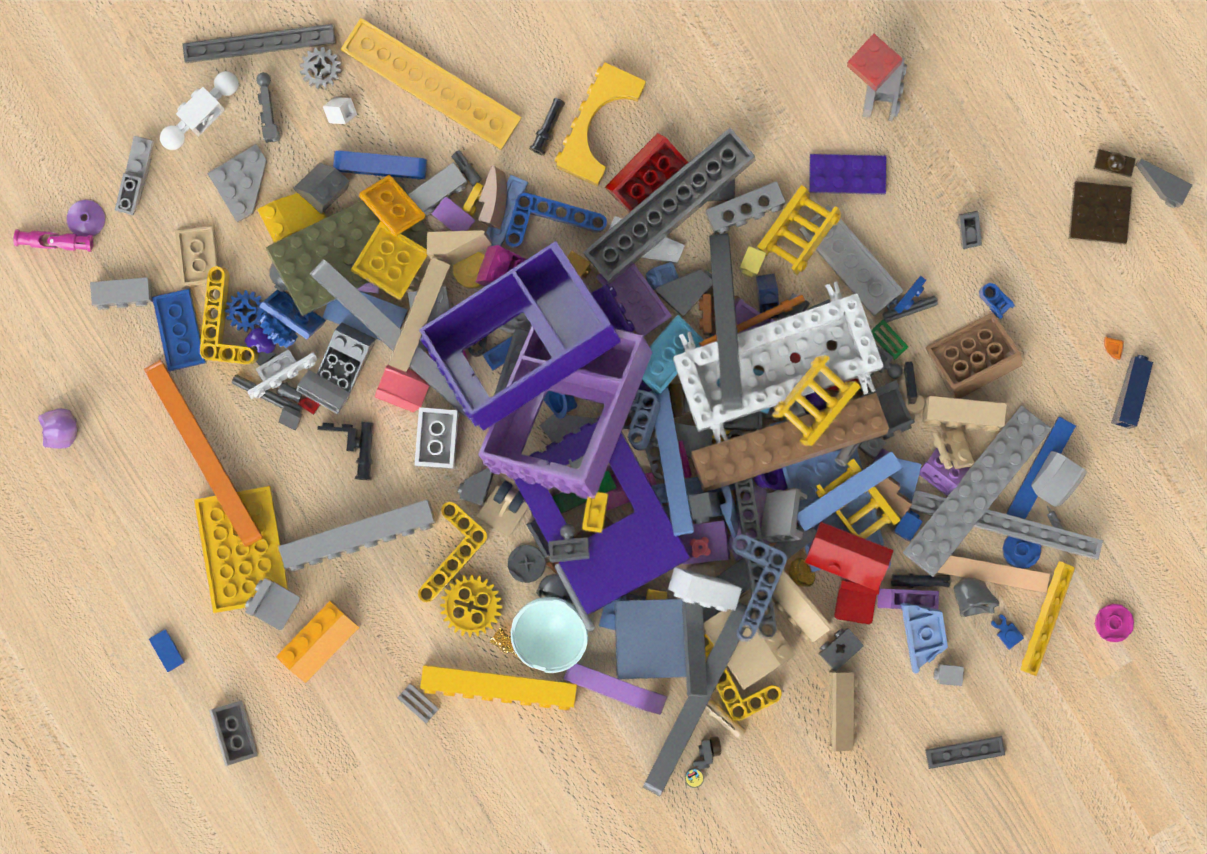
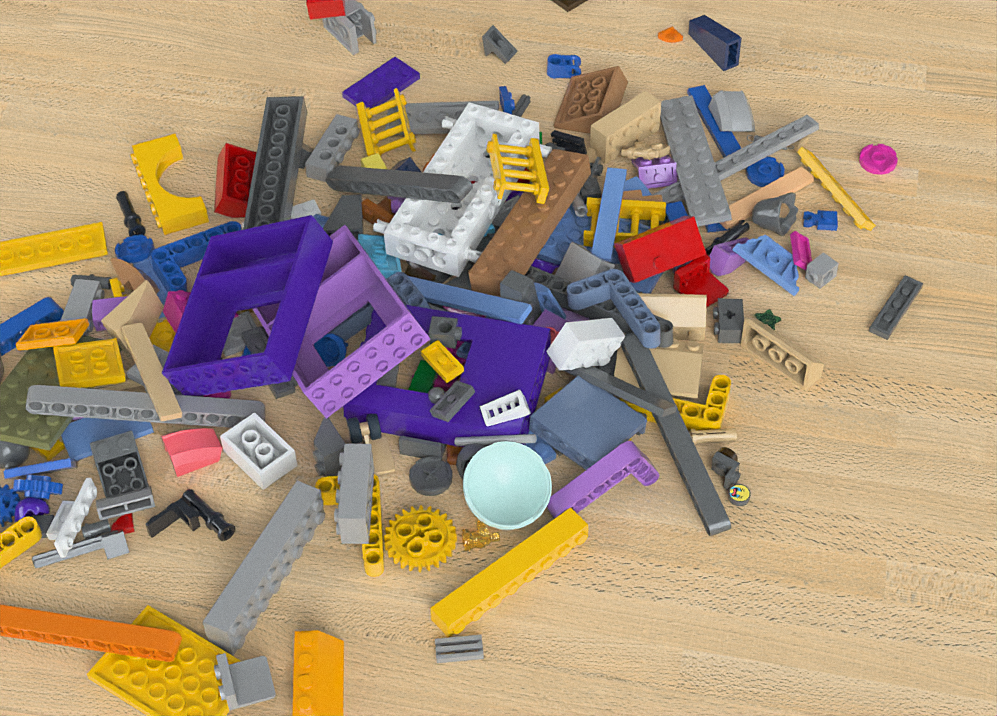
camera: 45 degrees left, 35 degrees down
(452, 547) = (355, 494): none -> light grey brick
(521, 166) = (134, 249): none -> blue tile
(612, 486) = (439, 326): none -> dark grey brick
(612, 593) = (514, 413): none -> white slope
(872, 671) = (768, 315): none -> clear green plate
(957, 644) = (800, 250): none -> dark pink tile

